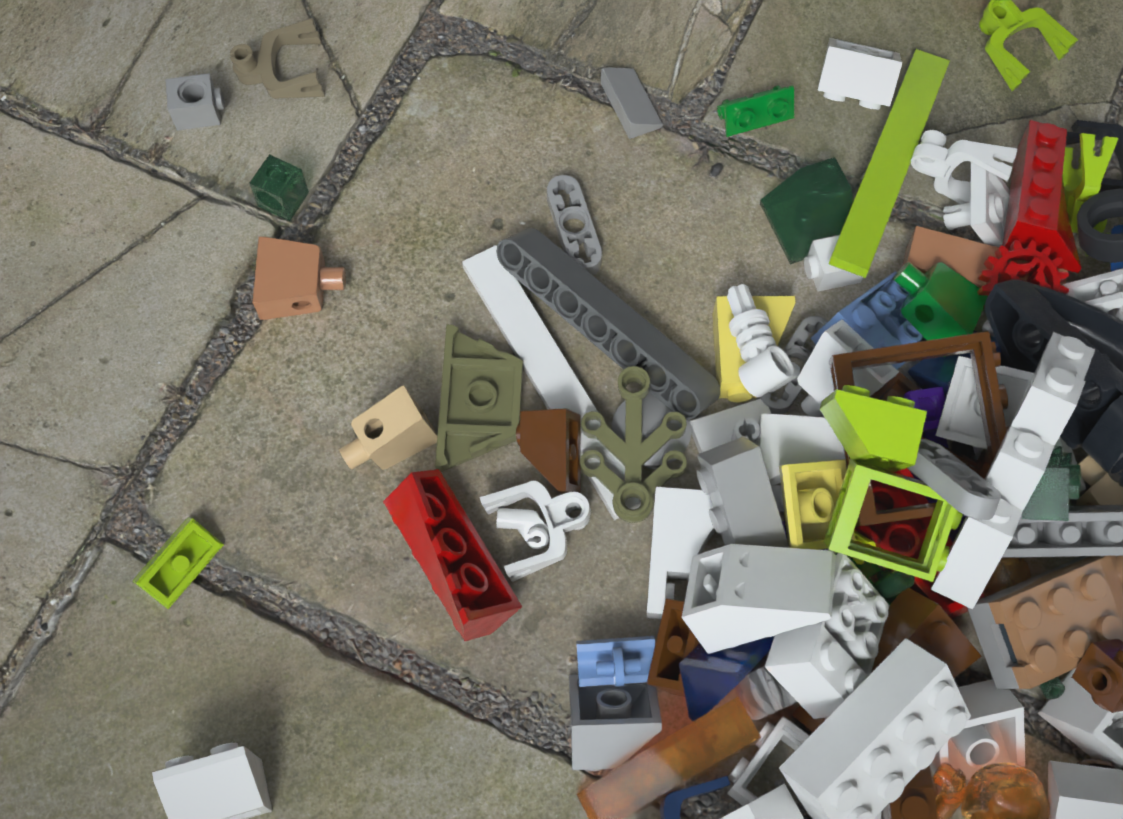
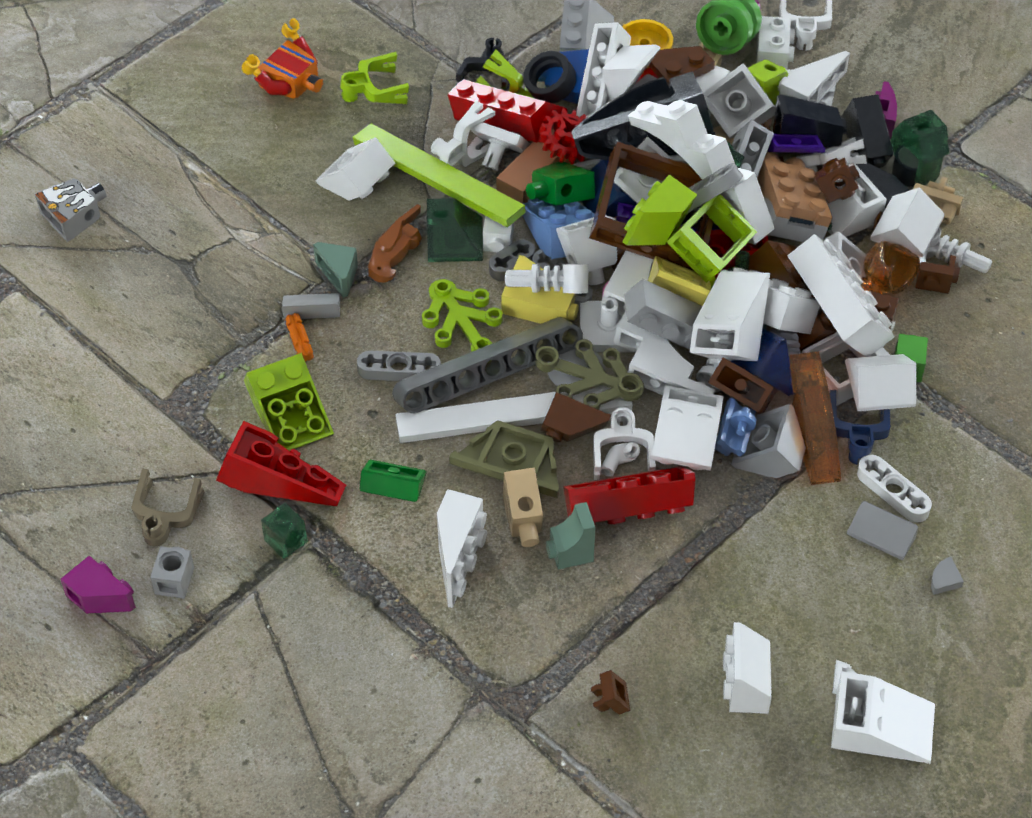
camera: 70 degrees left, 15 degrees down
(150, 629) = (613, 693): none -> reddish brown tile
(153, 39) = (96, 589): none -> magenta slope
(178, 562) = (562, 673): lime slope -> none
(292, 278) = (365, 543): nougat torso -> none
(302, 371) = (459, 535): none -> white slope
(361, 508) = (573, 539): none -> sand green arch
(365, 144) = (266, 468): none -> red wedge
(403, 277) = (392, 480): none -> green slope
(466, 128) = (288, 402): none -> lime slope
(575, 106) = (299, 336): none -> orange axle
(578, 595) = (687, 428): none -> white slope
(680, 262) = (444, 293): none -> lime plant
(695, 108) = (337, 264): none -> sand green slope
(755, 153) = (394, 246): none -> dark orange animal
(757, 111) = (356, 232): green hinge -> none
(805, 292) = (508, 258): none -> flat silver beam

